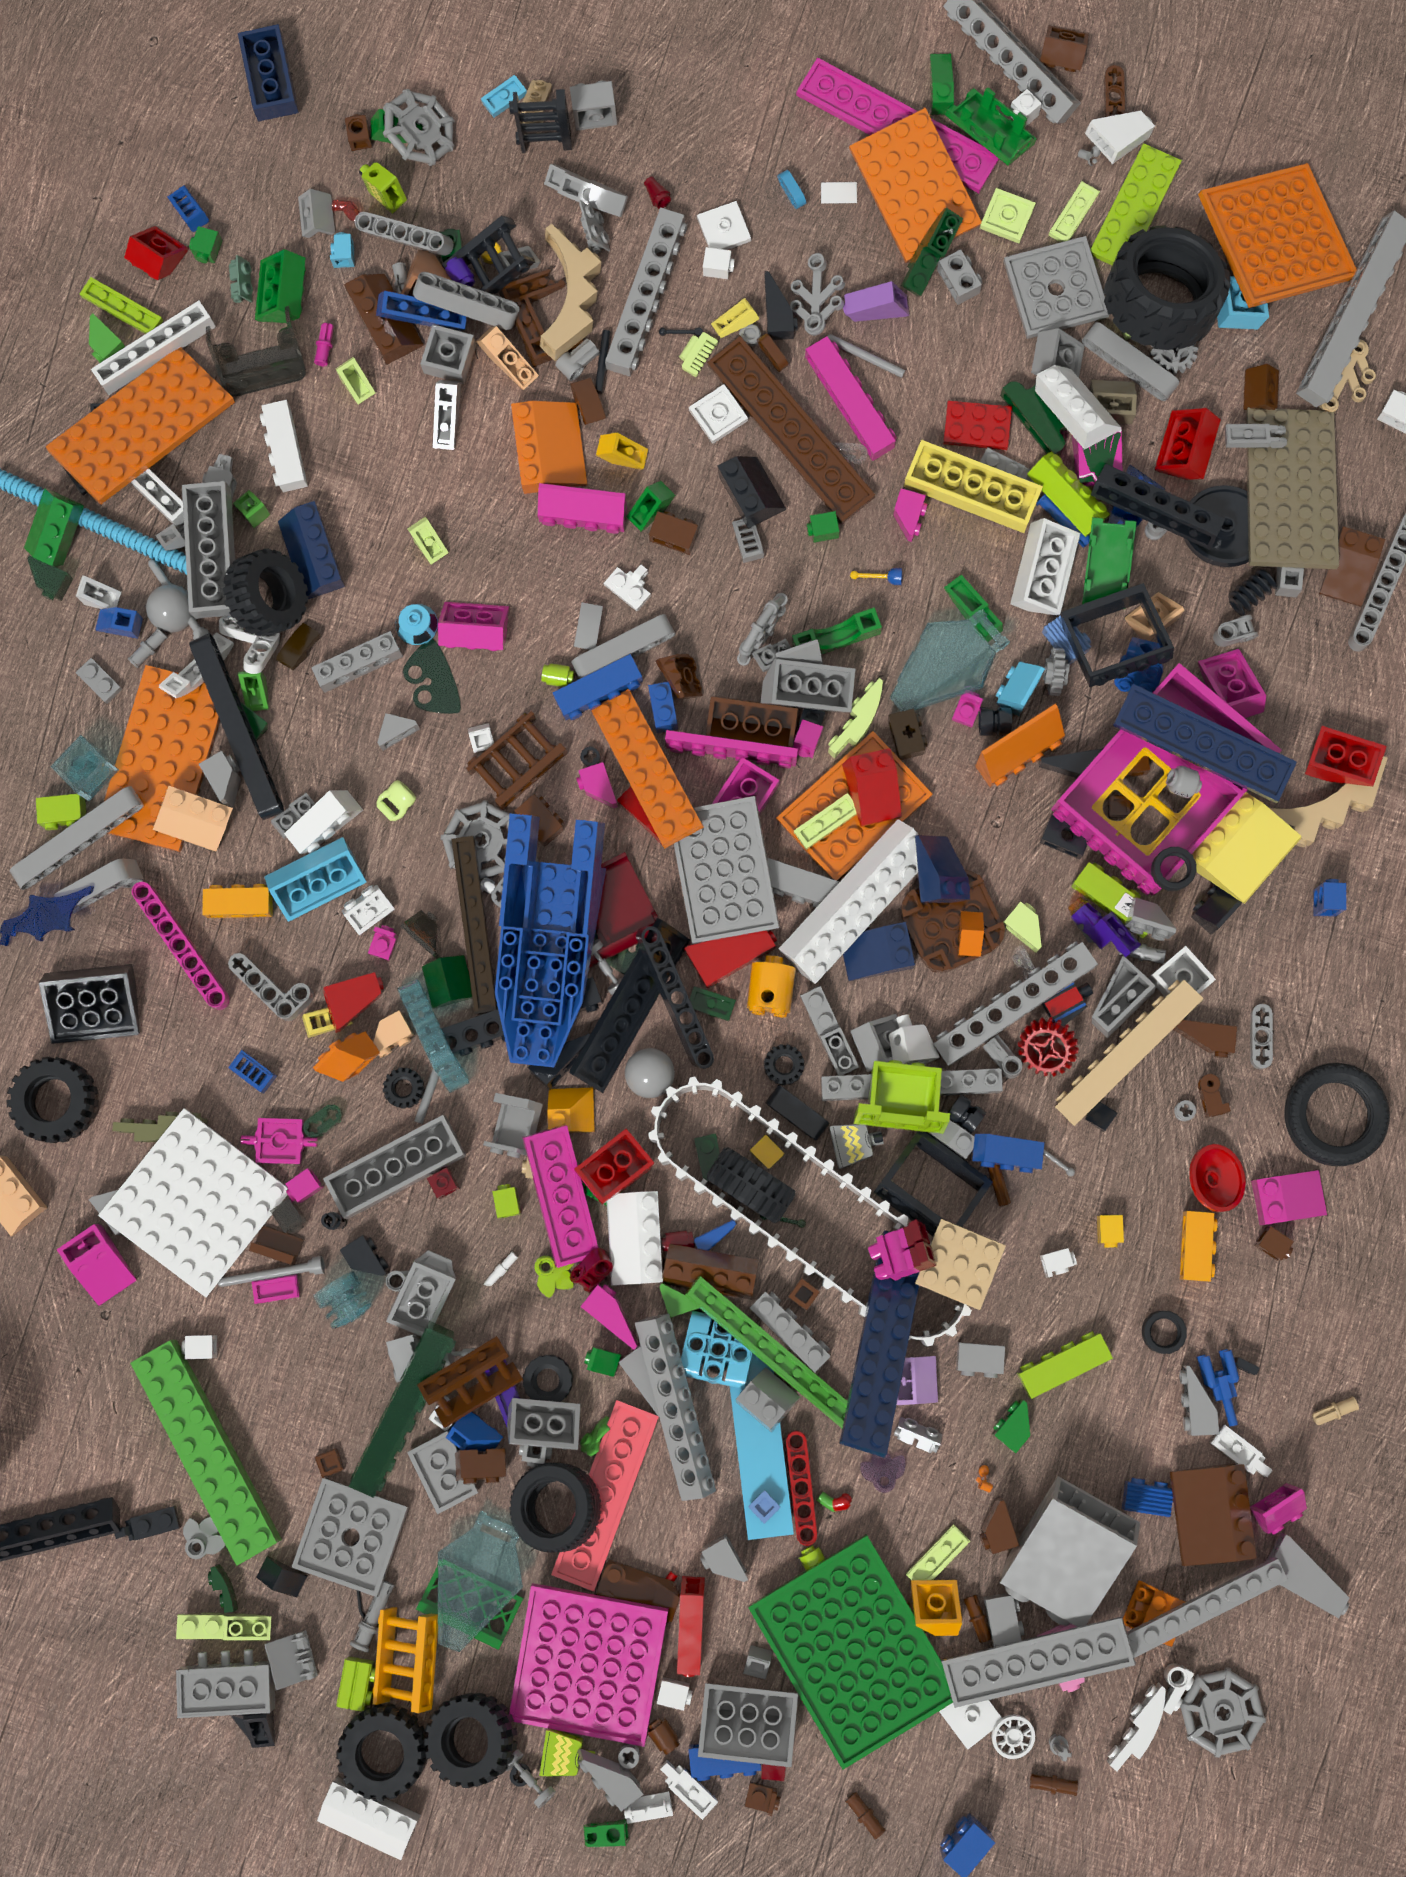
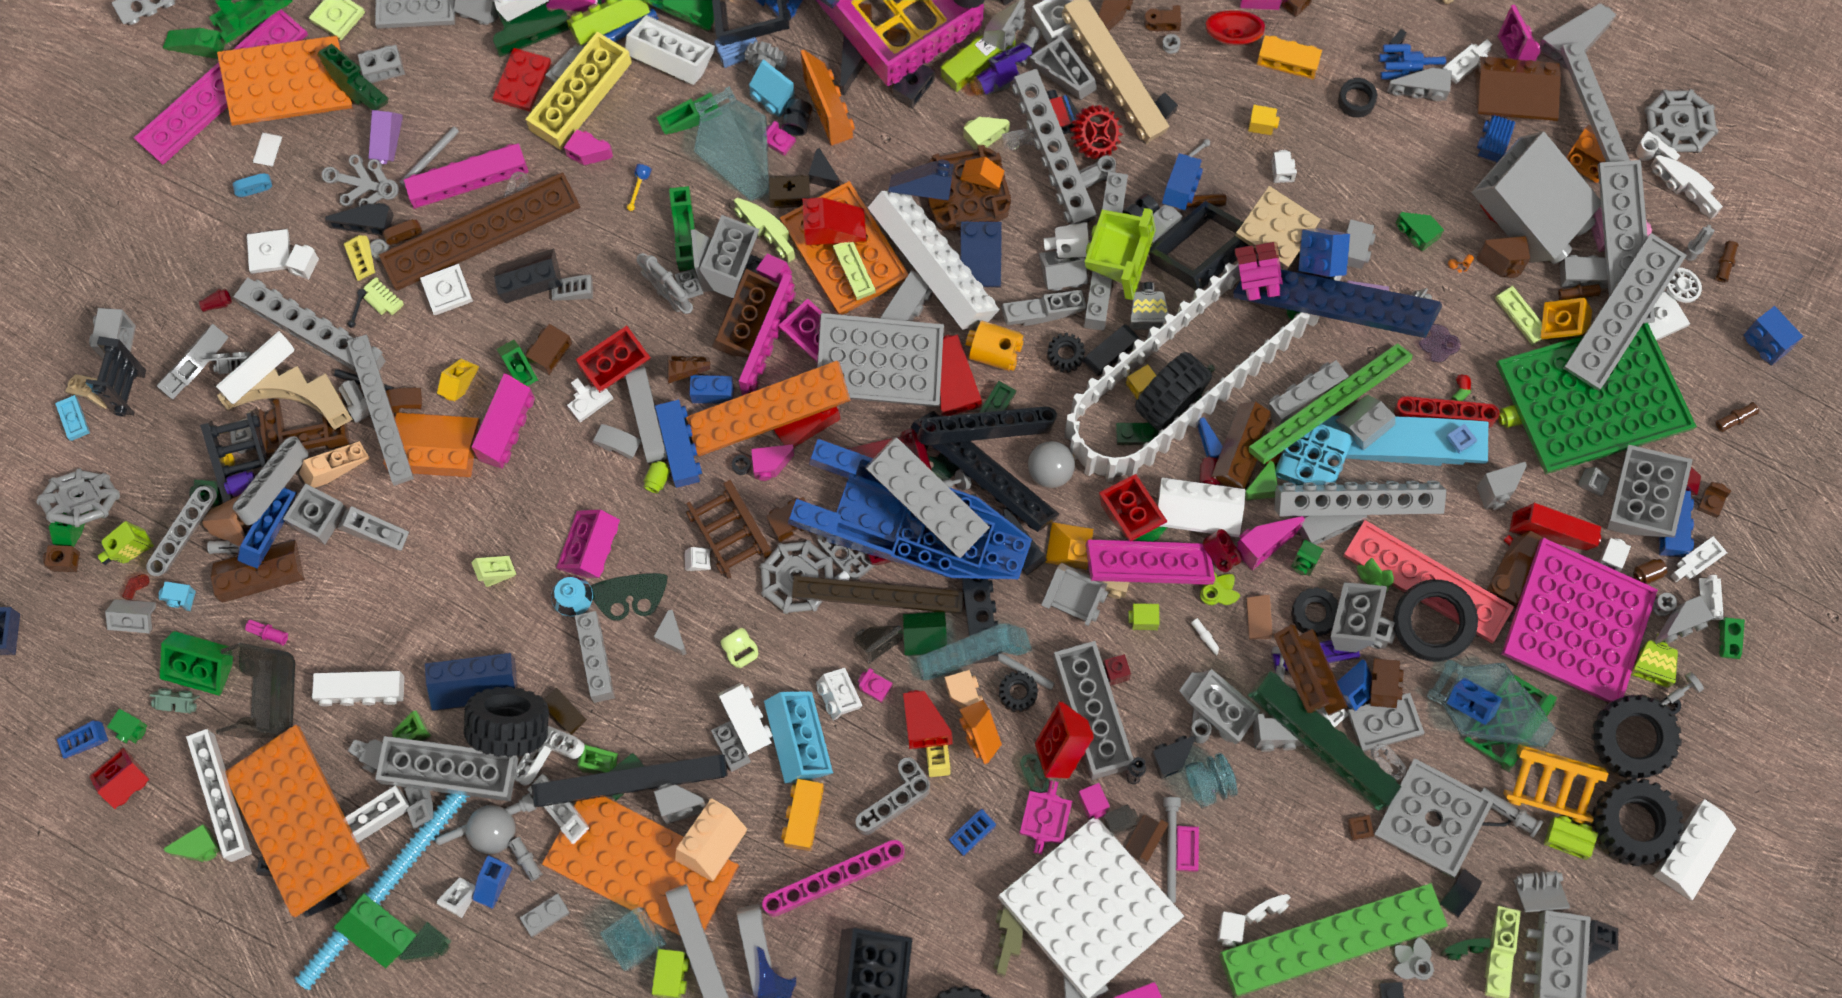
camera: 85 degrees left, 10 degrees down
(120, 306) = (164, 823): lime plate -> none
(231, 1386) = (1273, 905): none -> white slope
(349, 1142) = (1063, 742): none -> red slope
(355, 380) = (314, 607): yellowish green slope -> none
(397, 1478) = (1392, 758): none -> clear beam
(476, 1561) = (1474, 701): none -> blue brick
(531, 1321) = (1259, 617): none -> nougat slope
(562, 947) = (927, 497): none -> light grey brick
(565, 384) = (380, 410): none -> light grey plate
(584, 251) = (255, 368): none -> white slope
(671, 599) = (612, 359): none -> red slope
(804, 1294) = (1276, 374): reddish brown brick -> none
(823, 527) = (579, 221): green brick -> none
(937, 762) = (822, 173): none -> black slope
(938, 1319) = (1324, 252): none -> blue brick
(952, 1671) = (1624, 312): none -> light grey plate
(1064, 1365) = (1373, 179): lime brick -> none

